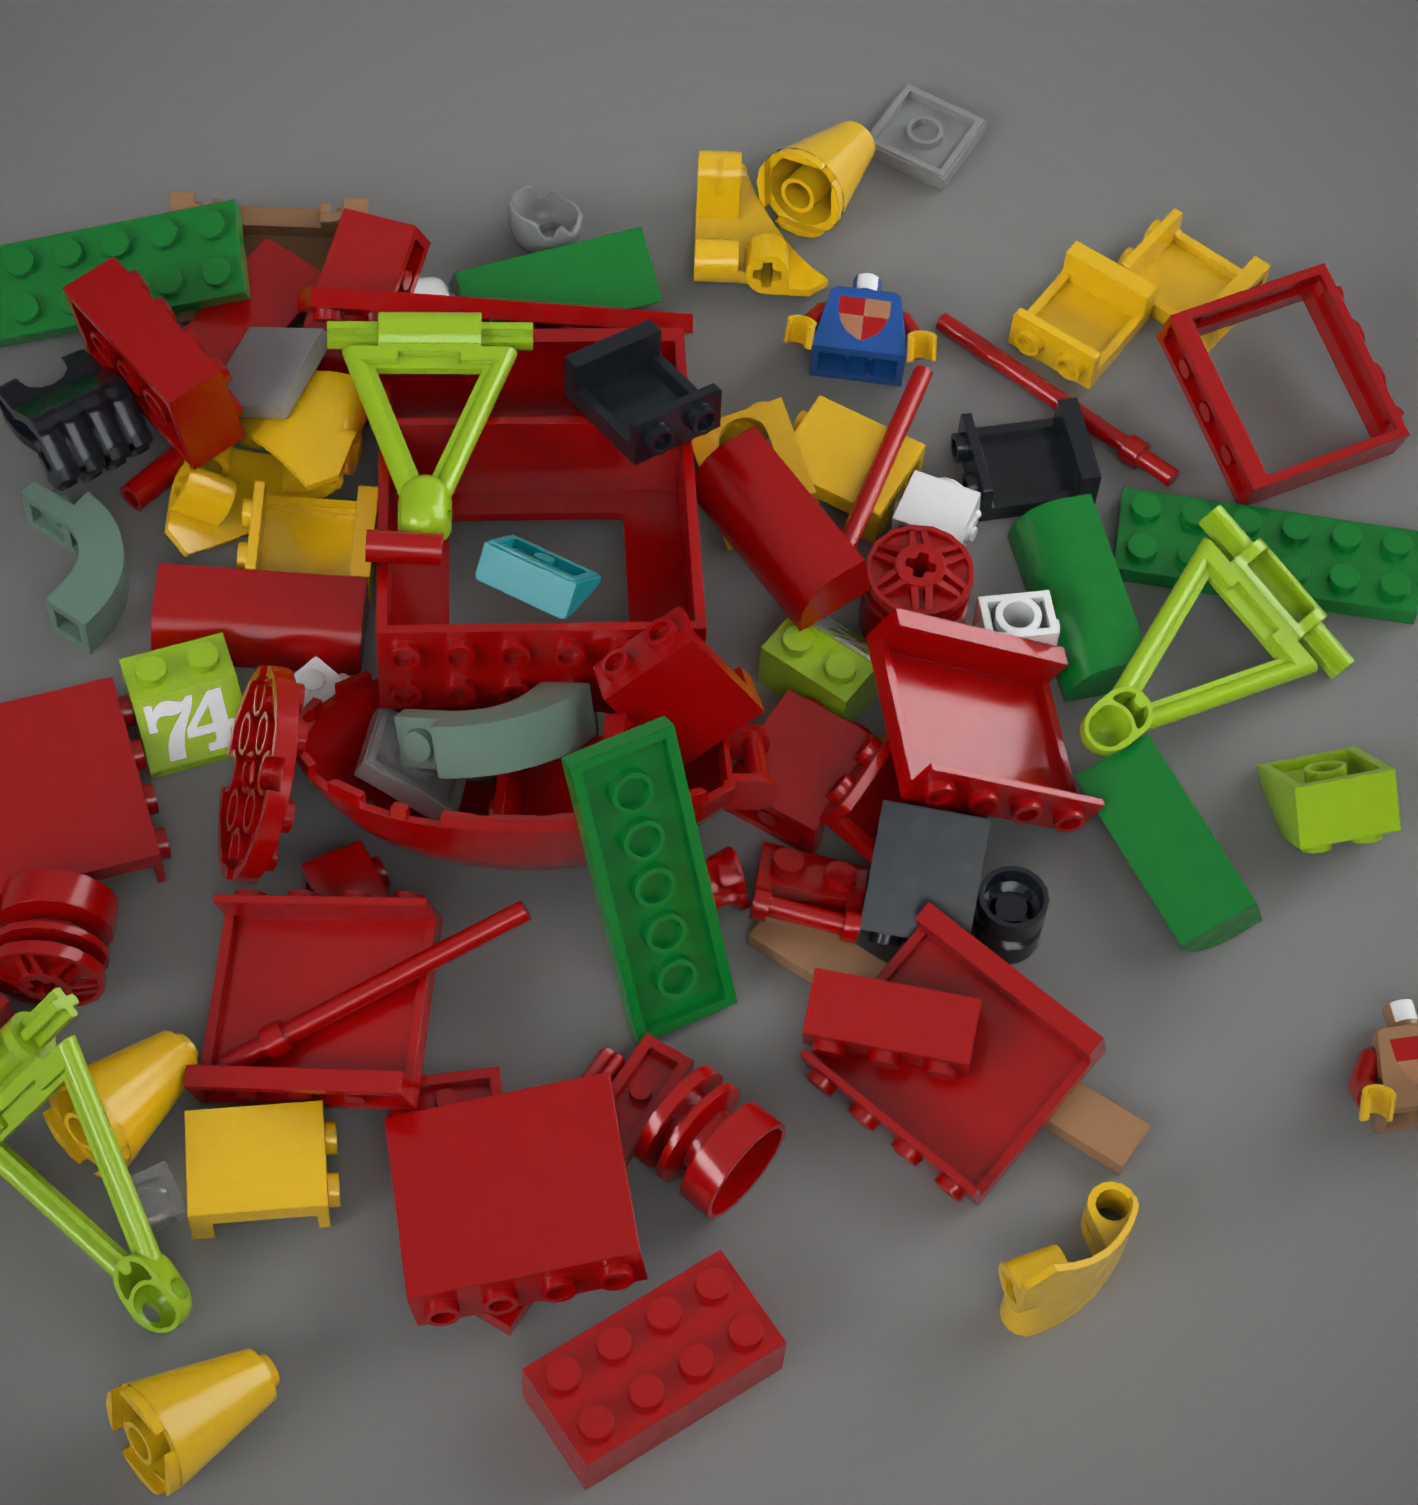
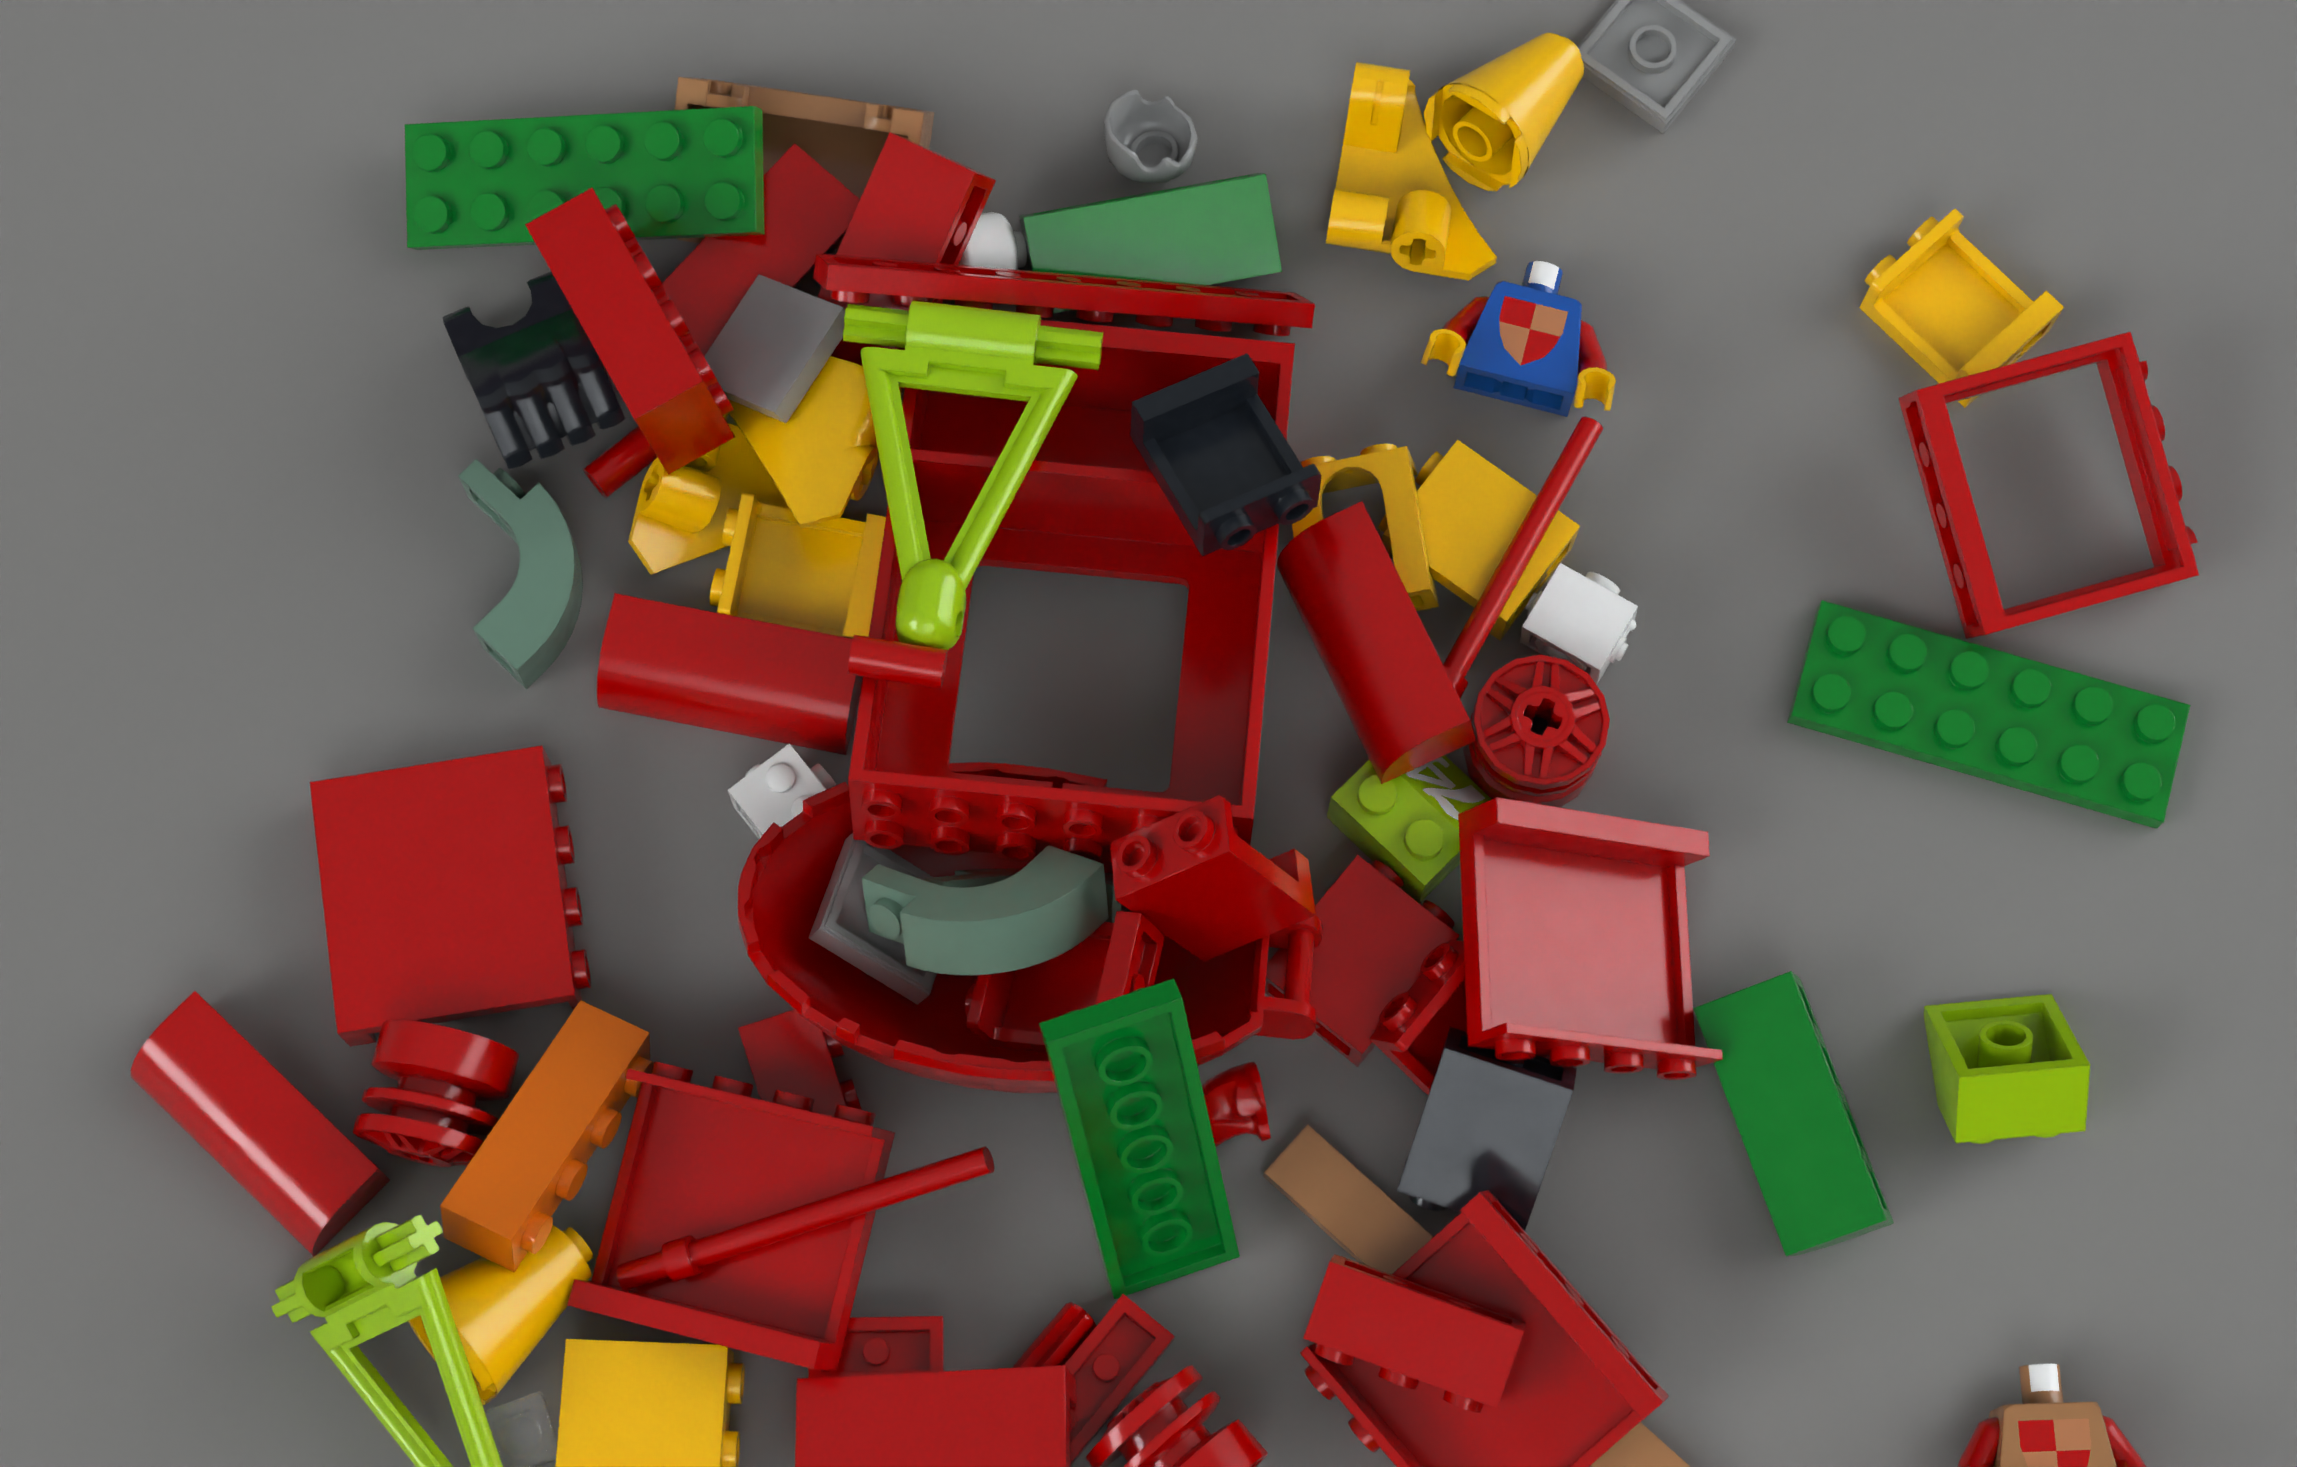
camera: 10 degrees right, 15 degrees up
(150, 959) = (546, 1138): none -> orange brick
(183, 703) = (629, 785): lime slope -> none
(264, 752) = (698, 921): red plate -> none
(535, 575) = (1054, 718): teal slope -> none
(809, 891) = (1348, 1111): red plate -> none
(1010, 912) = (1583, 1189): black wheel -> none
(1020, 615) = (1667, 786): white head -> none
(1027, 461) = (1706, 553): black panel -> none
(1068, 553) = (1740, 753): green brick -> none
(1084, 316) = (1811, 347): yellow panel -> none
(1129, 449) = (1841, 545): red bar -> none
(1262, 597) = (1971, 794): lime piece -> none

